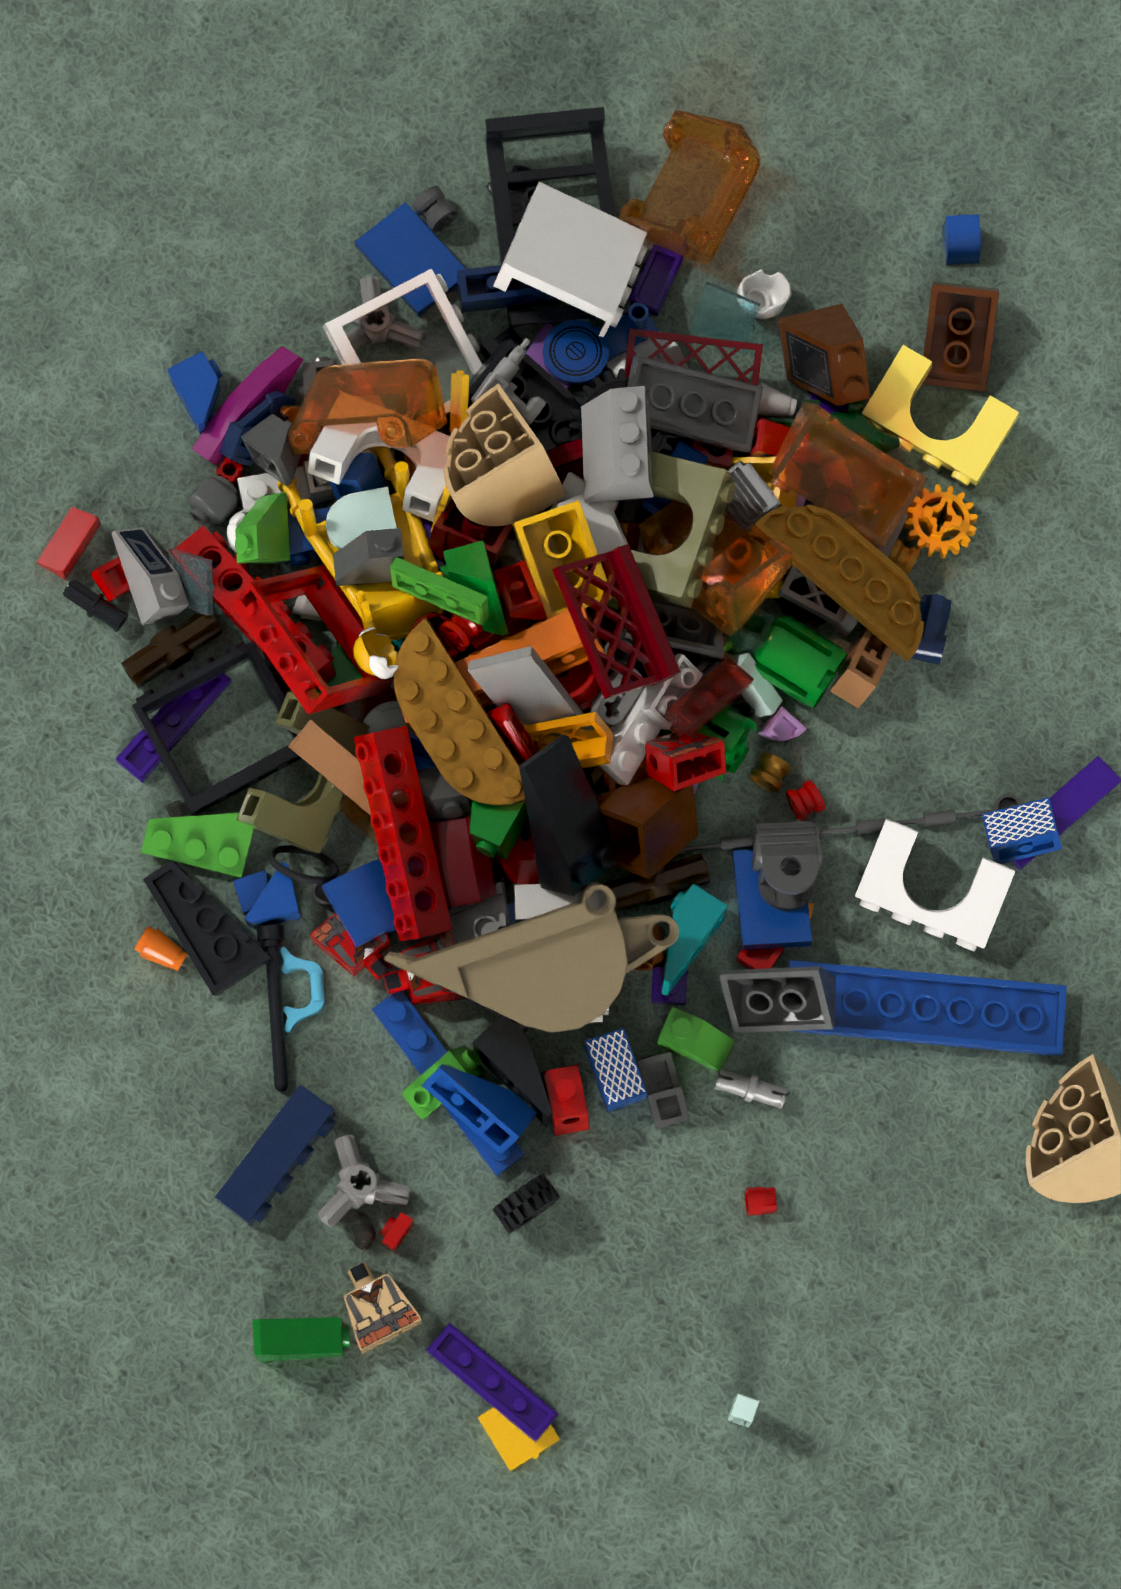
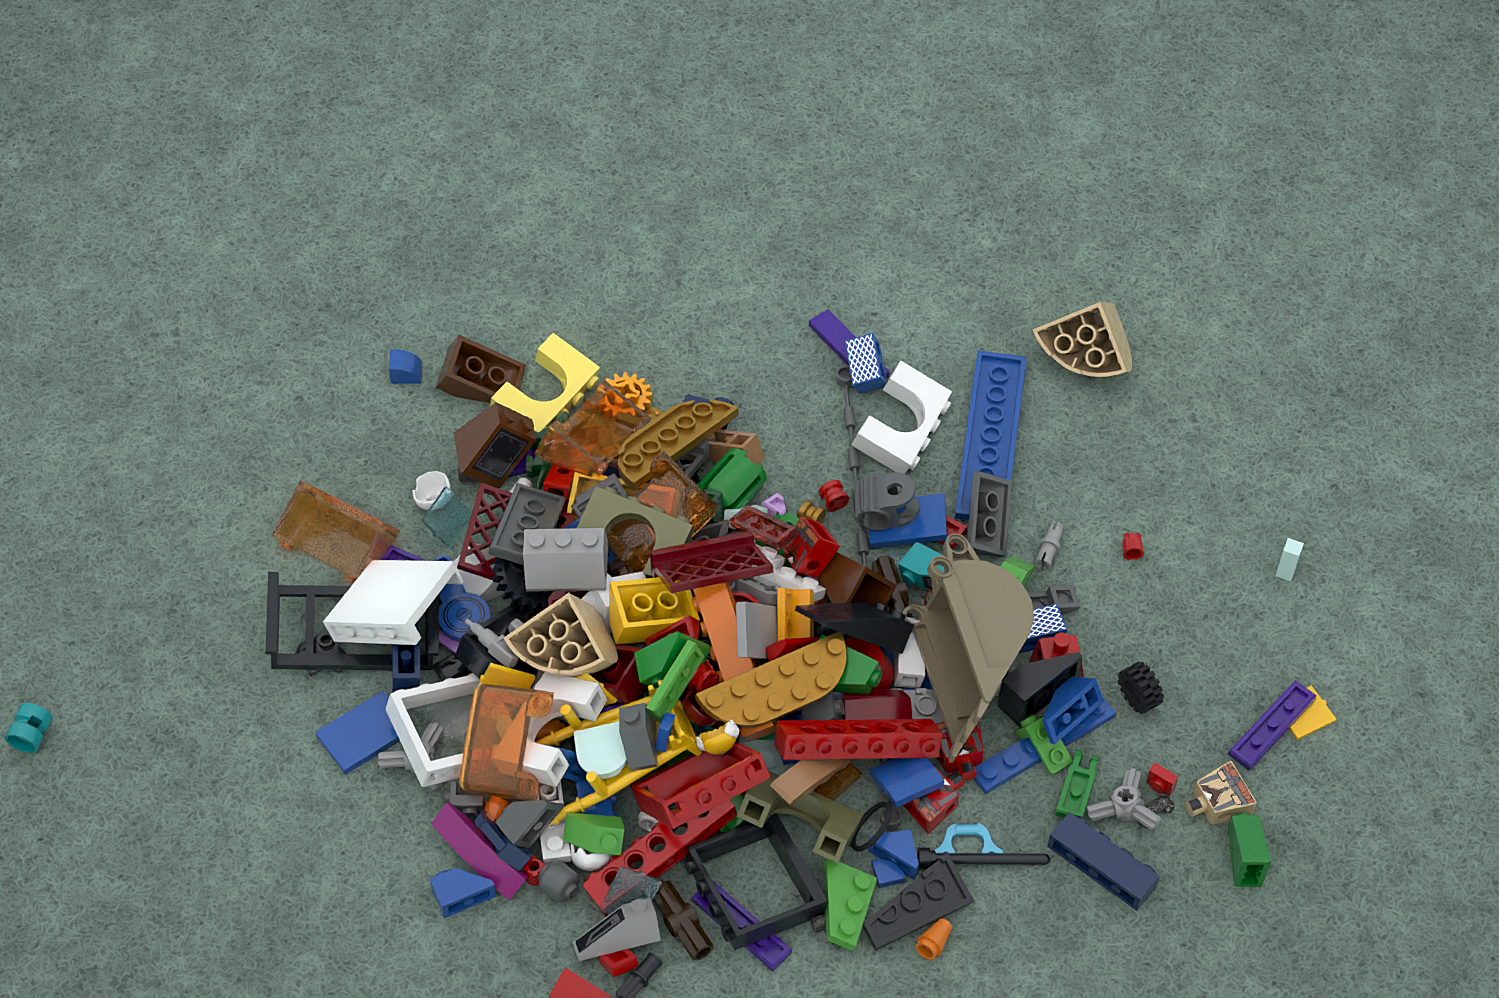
camera: 85 degrees left, 20 degrees down
(377, 587) = (665, 731): none -> blue tile
(382, 1124) = (1077, 787): none -> green hinge
(435, 209) = (325, 709): dark grey wheel -> none

